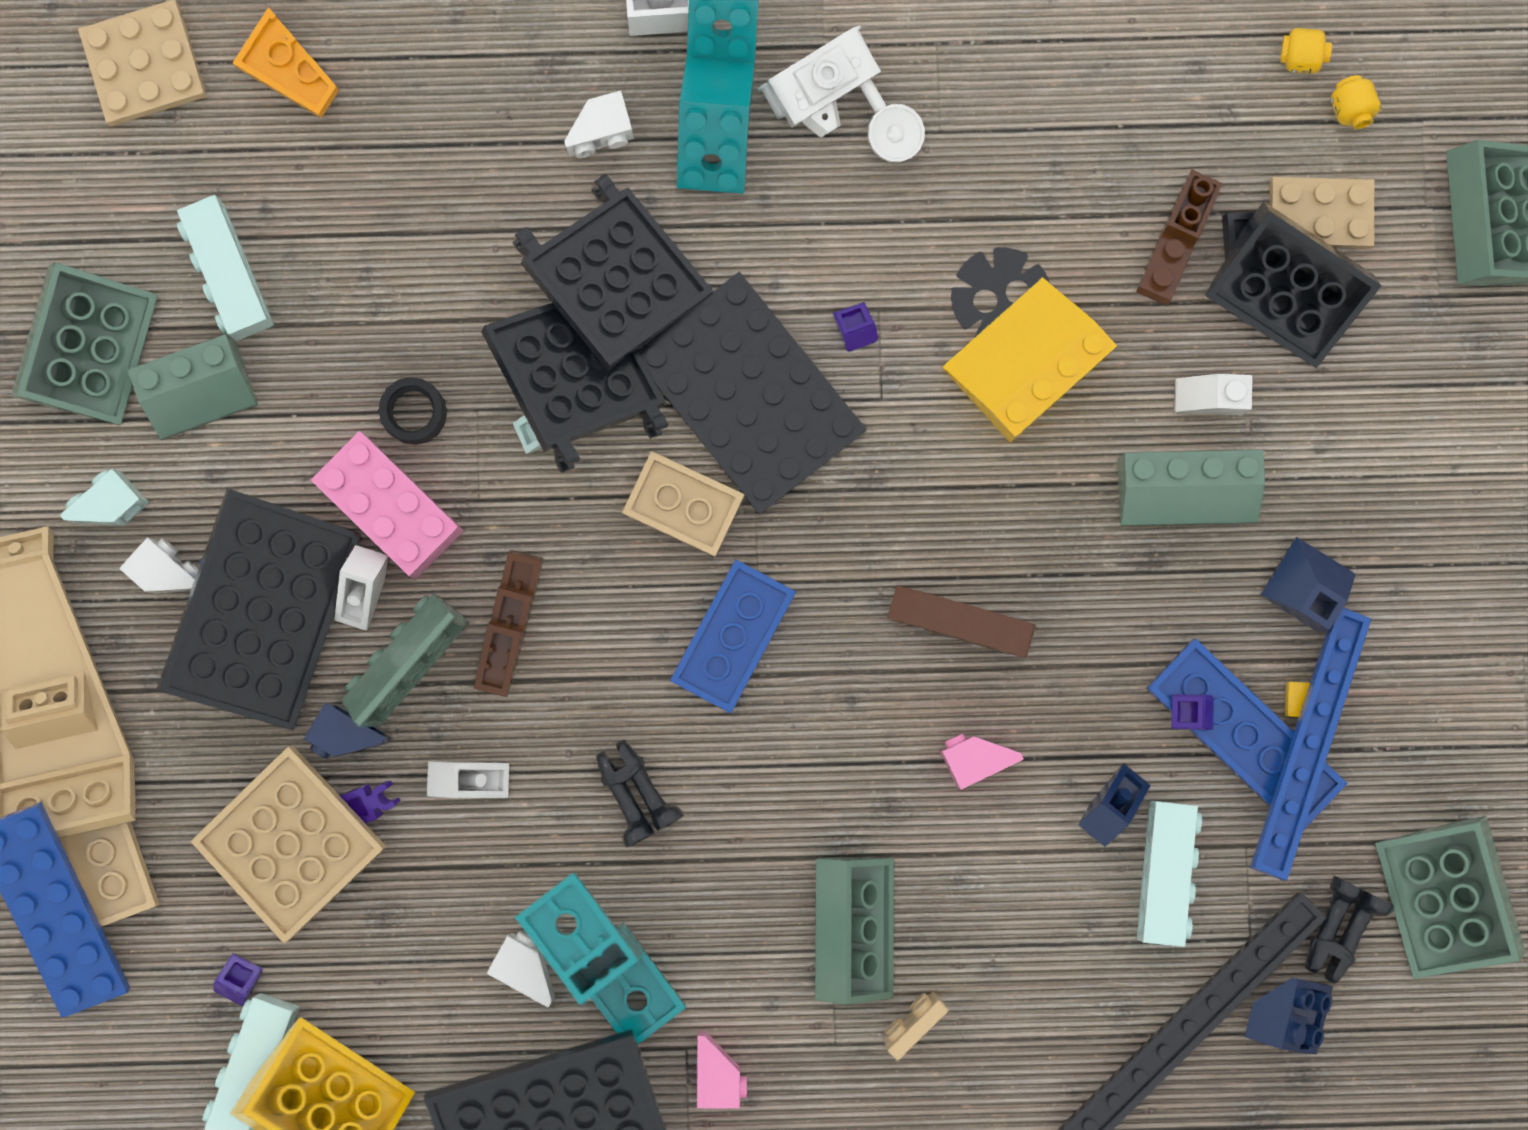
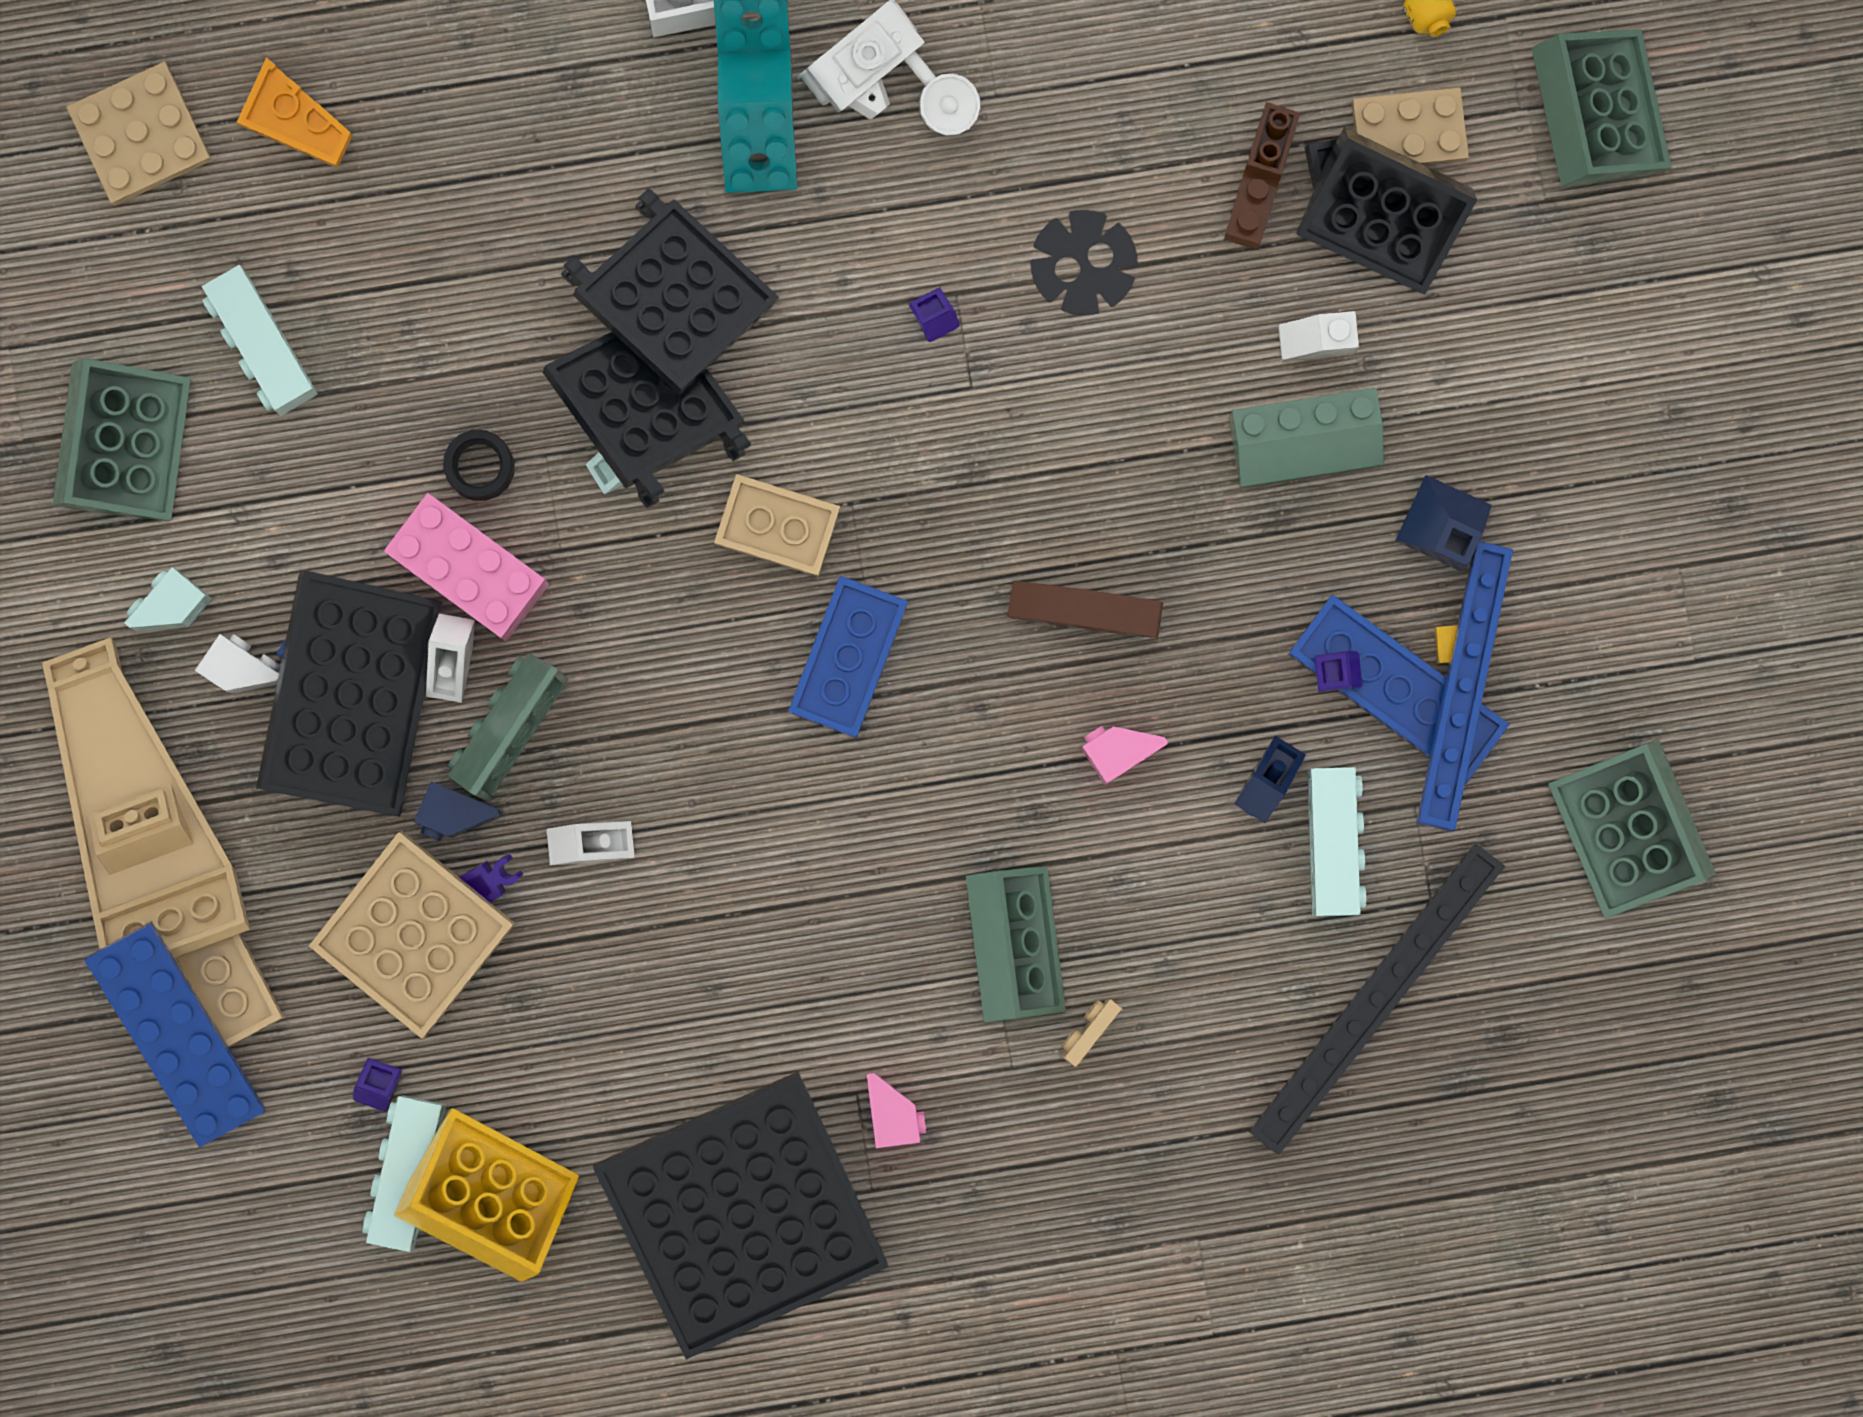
camera: 10 degrees left, 0 degrees up
(193, 386) = (244, 470): sand green slope -> none
(508, 623) = (610, 674): reddish brown slope -> none
(523, 968) = (675, 1030): white slope -> none
(600, 125) = (636, 135): white slope -> none
(600, 959) = (755, 1005): teal bracket -> none
(637, 825) = (775, 868): black piece -> none
(750, 393) = (832, 399): black plate -> none
(1029, 358) = (1120, 324): yellow slope -> none
(1291, 1016) = (1481, 971): dark blue slope -> none
(1343, 952) = (1546, 851): black piece -> none

